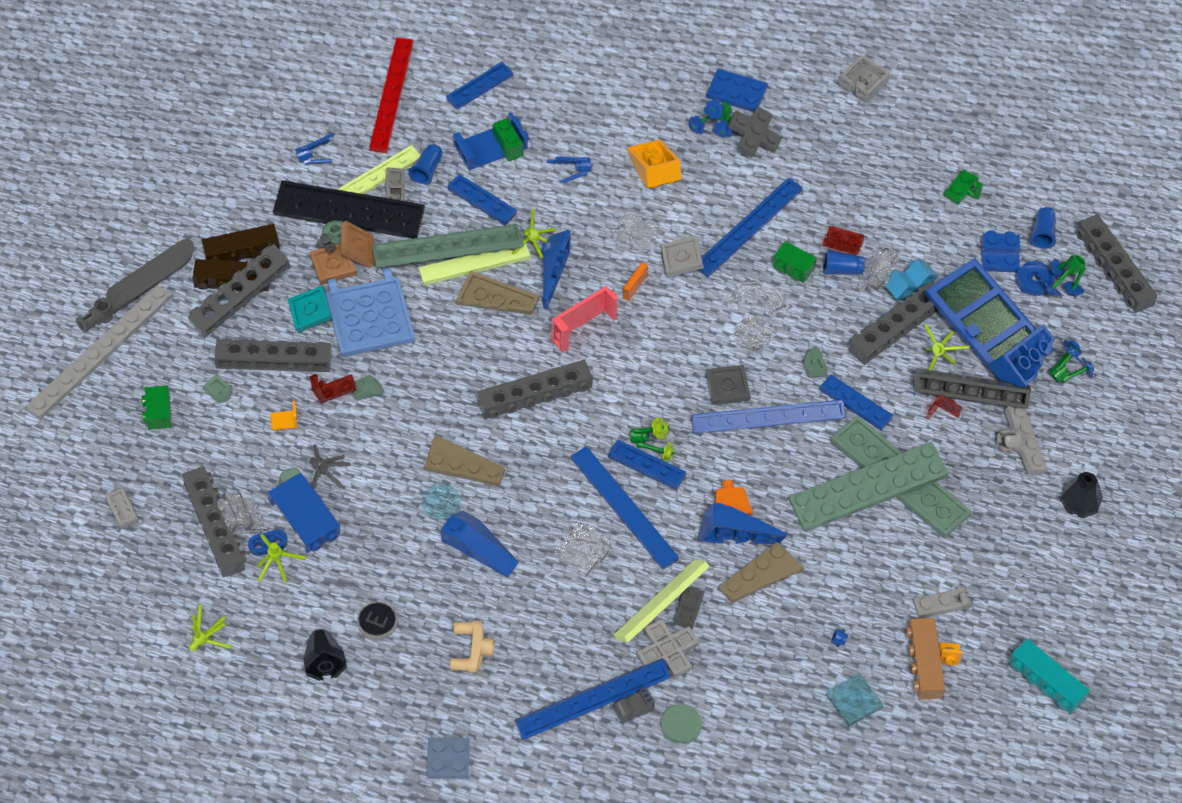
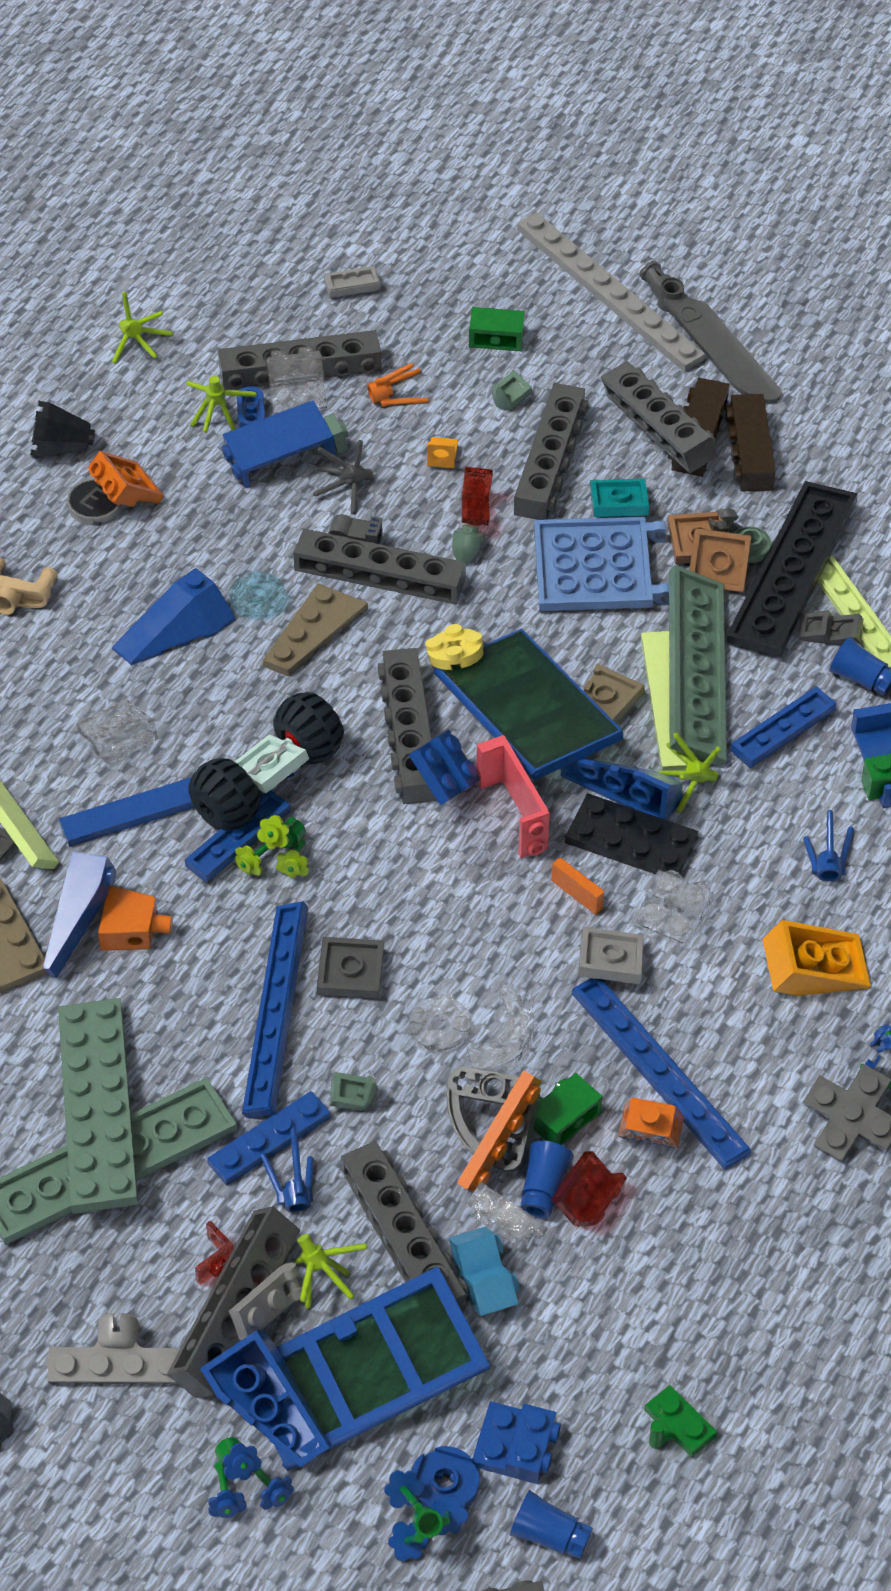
camera: 105 degrees right, 5 degrees down
(232, 467) = (382, 387): none -> orange plant
(362, 598) = (123, 480): none -> orange plate
(374, 451) = (357, 529): none -> dark grey leg
(403, 390) = (379, 566): none -> dark grey brick
(469, 385) = (455, 647): none -> light yellow plate
(503, 327) = (532, 703): none -> clear green door
(573, 354) = (444, 767): none -> blue plate
(586, 264) = (630, 836): none -> black plate
(596, 451) = (228, 790): none -> black plate
(793, 218) = (651, 1122): none -> orange torso
(806, 280) = (456, 1111): none -> dark grey beam
(829, 279) = (507, 1121): none -> orange plate
(890, 377) = (296, 1194): none -> blue plant
(966, 369) = (267, 1300): none -> light grey plate

